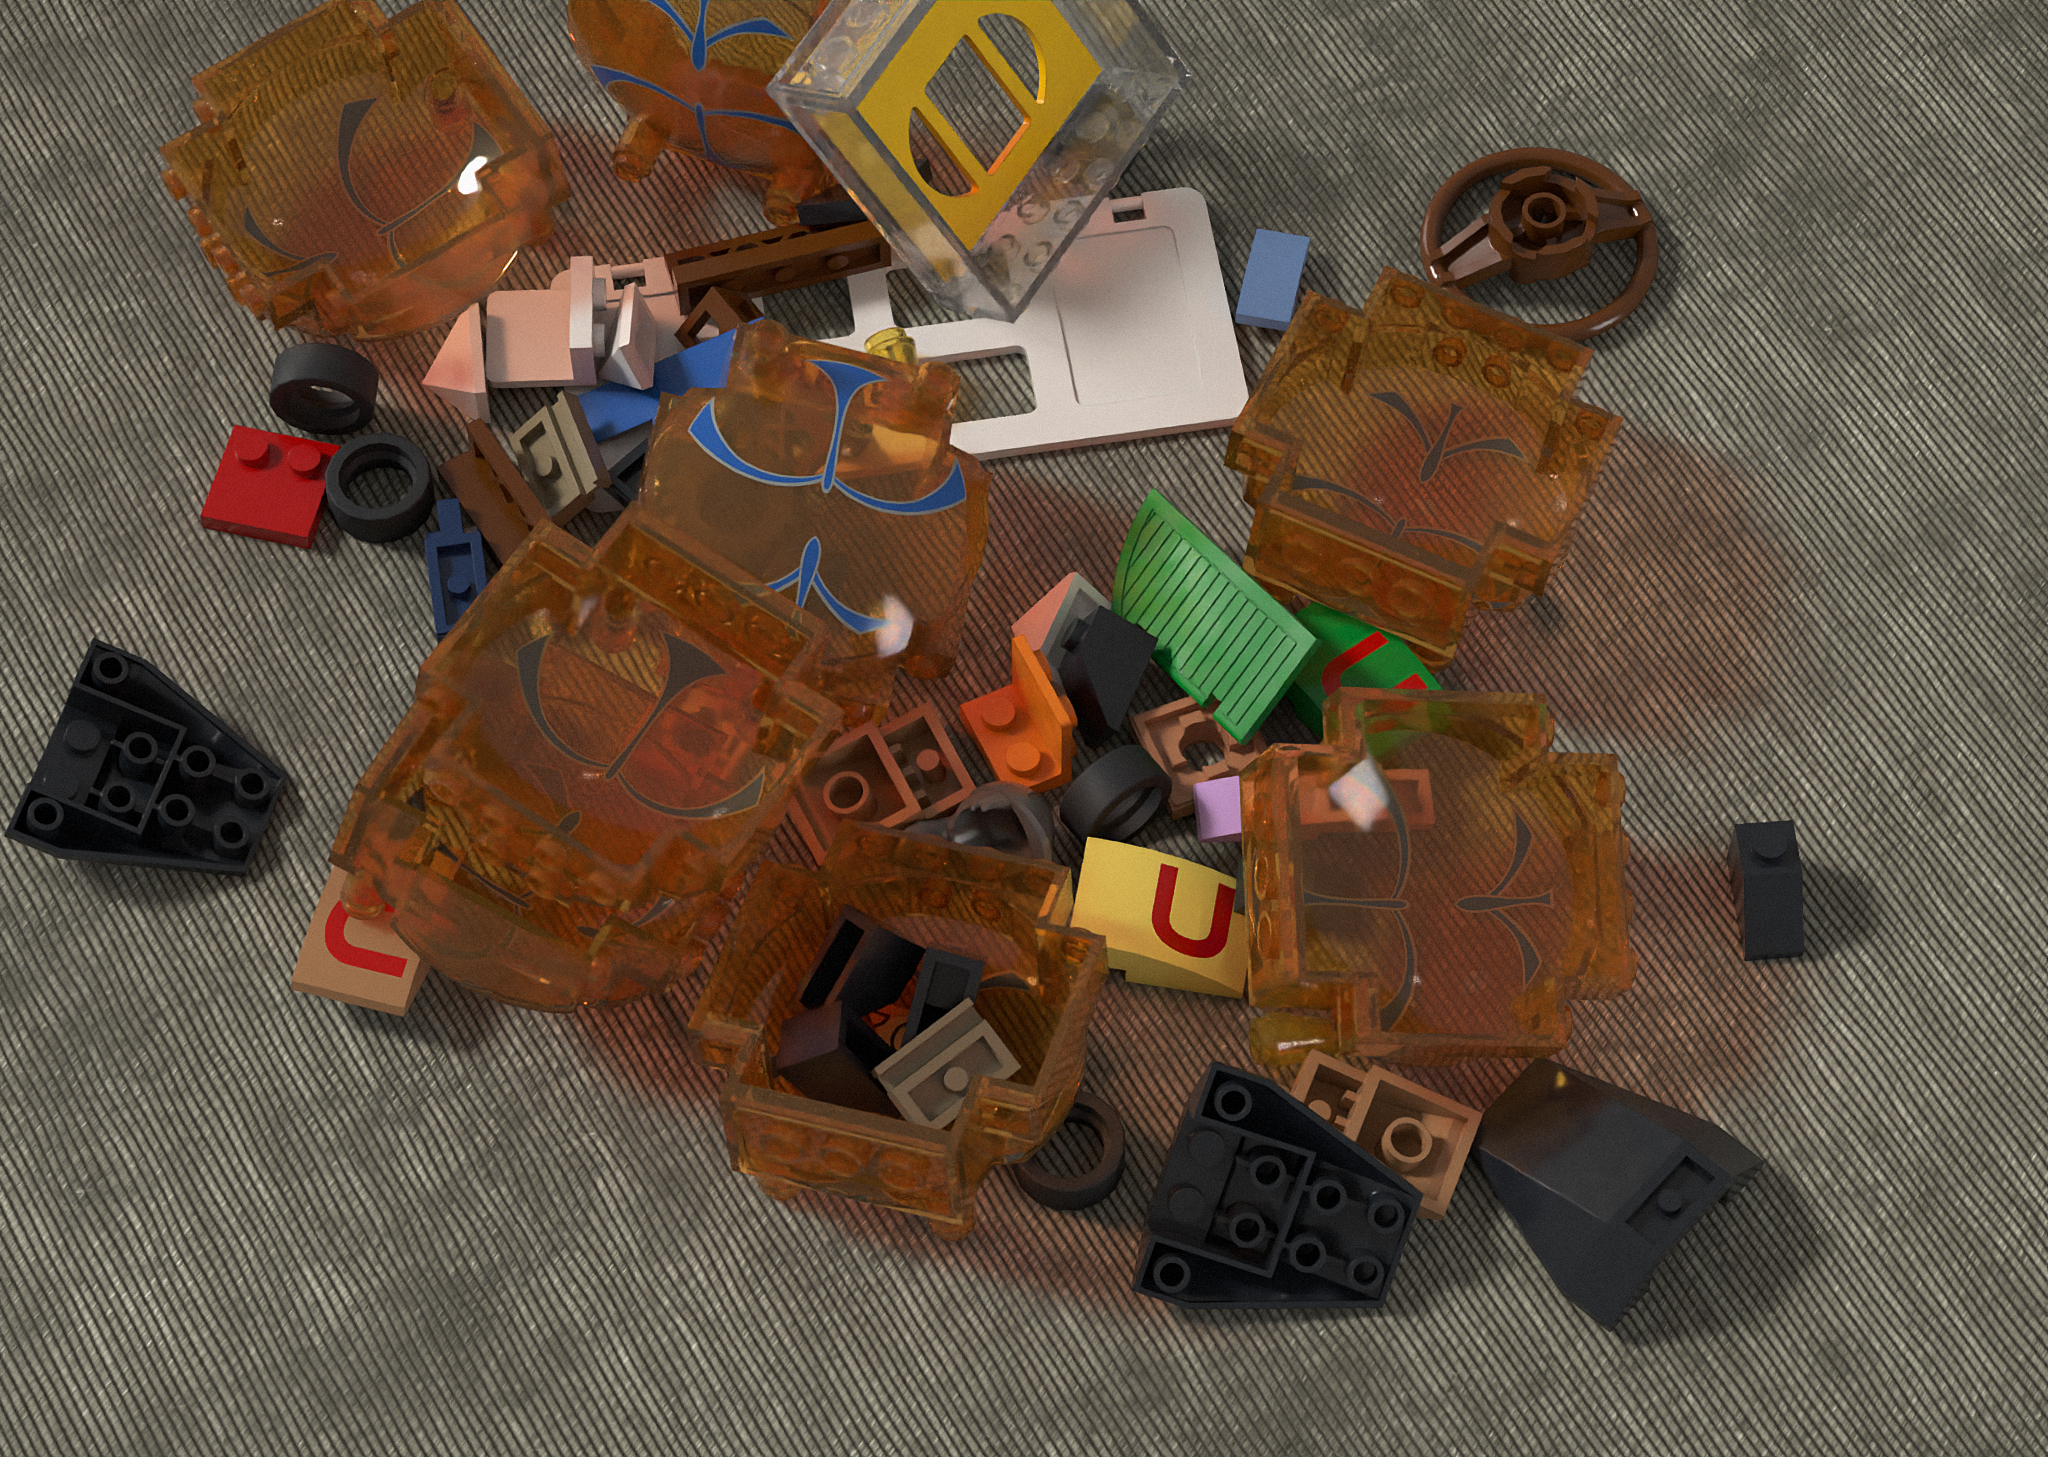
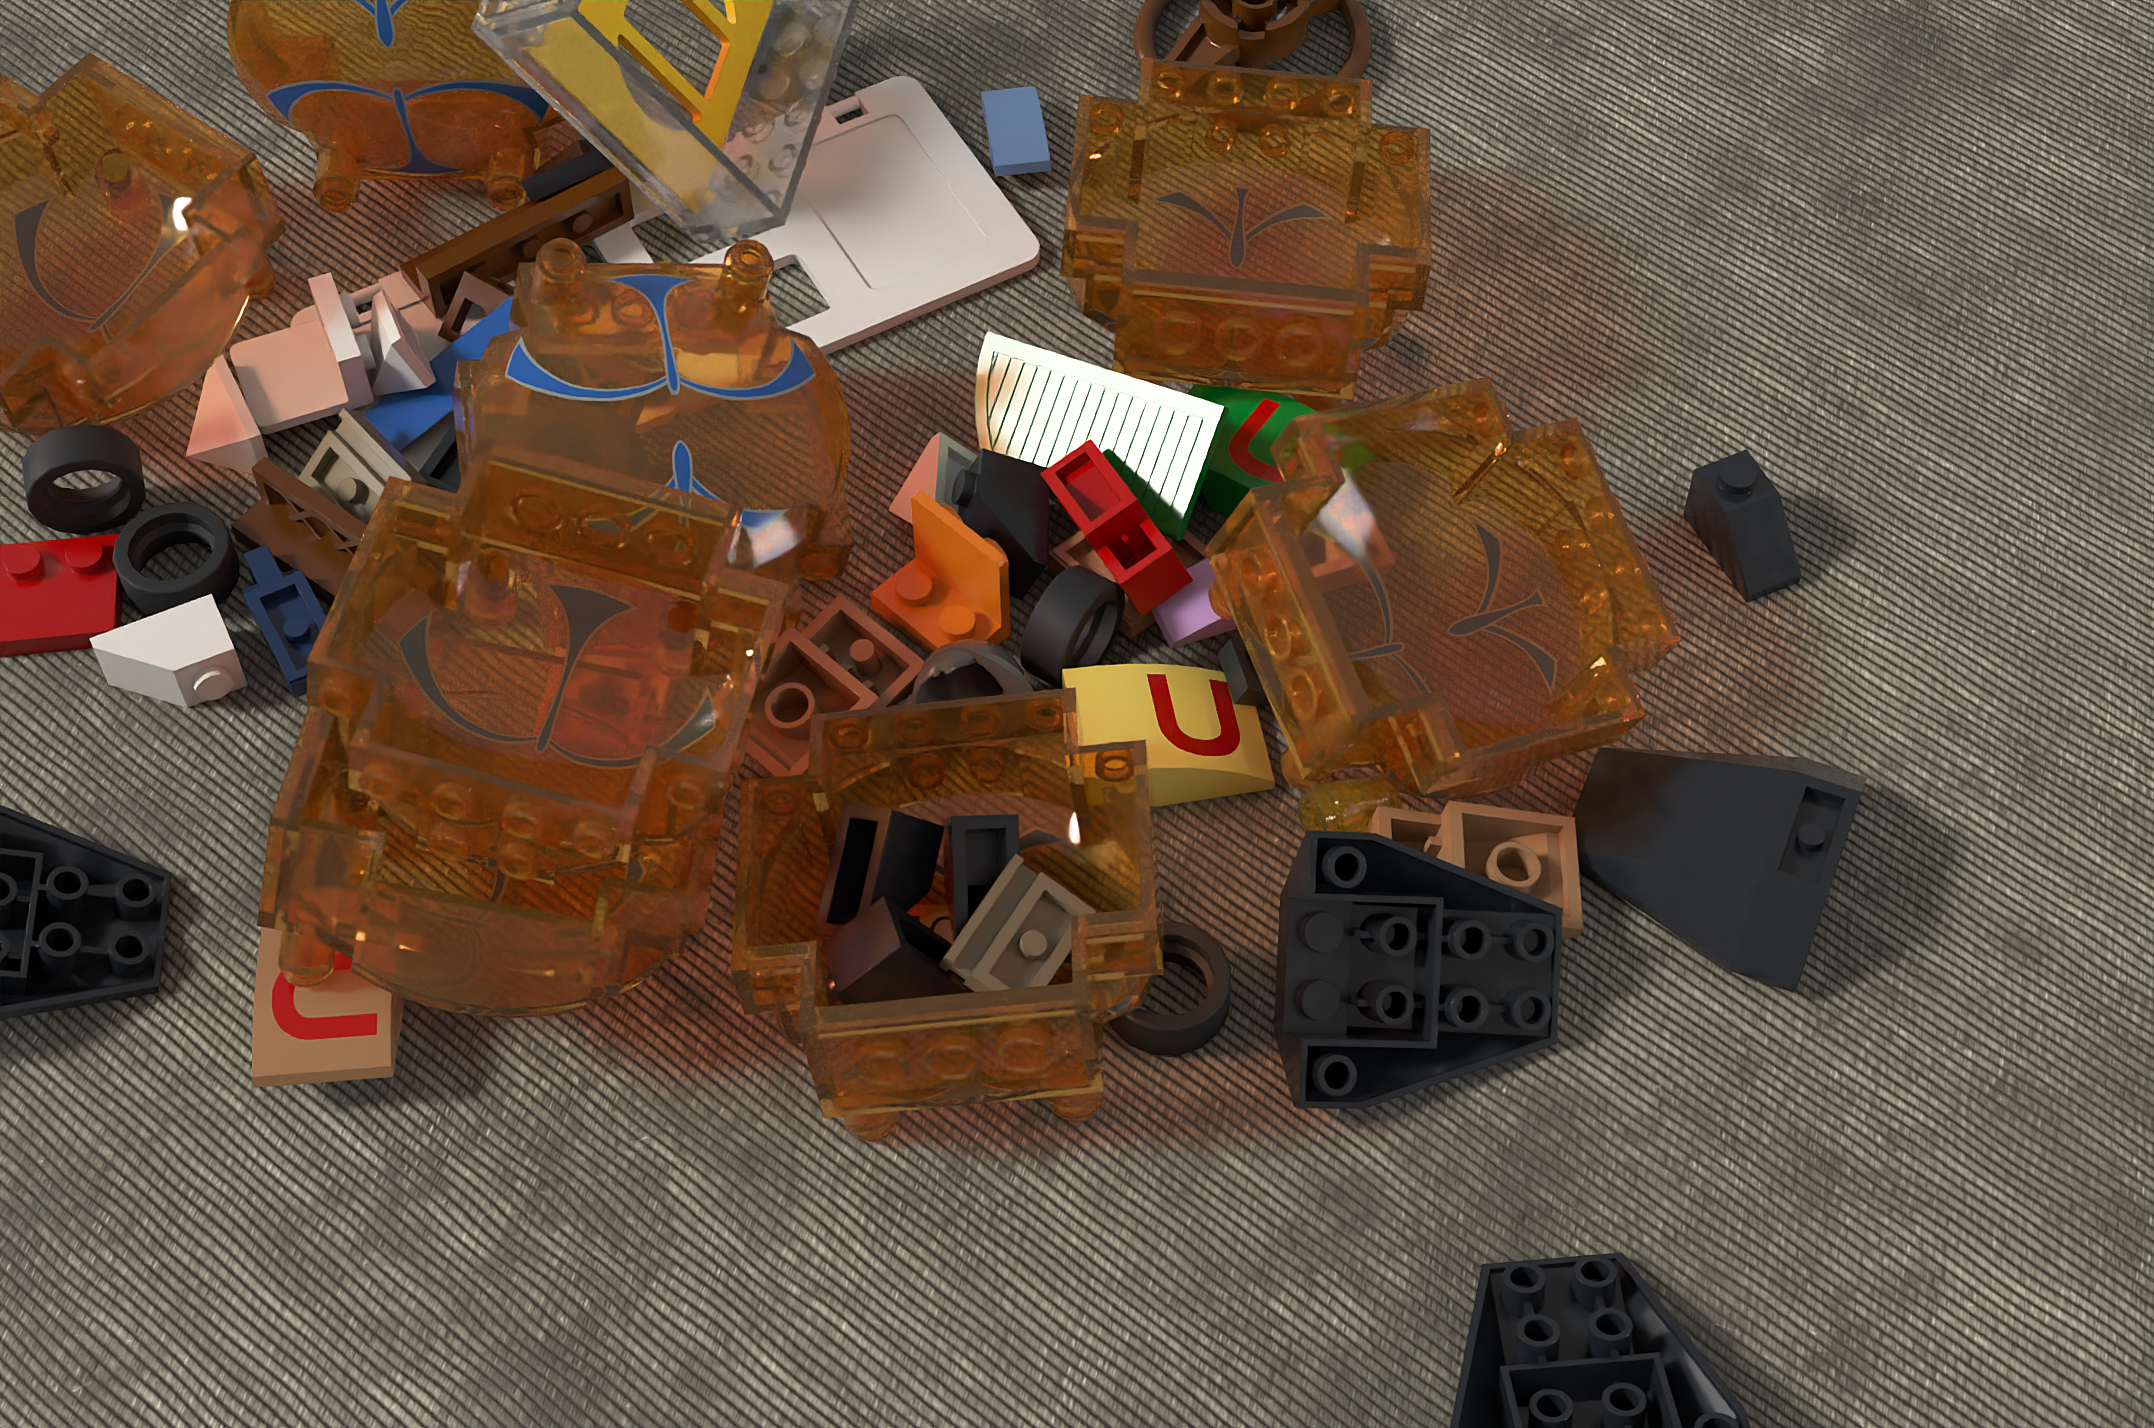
camera: 20 degrees left, 5 degrees down
(350, 577) = (173, 655): none -> white slope
(1188, 717) = (1117, 527): none -> red slope

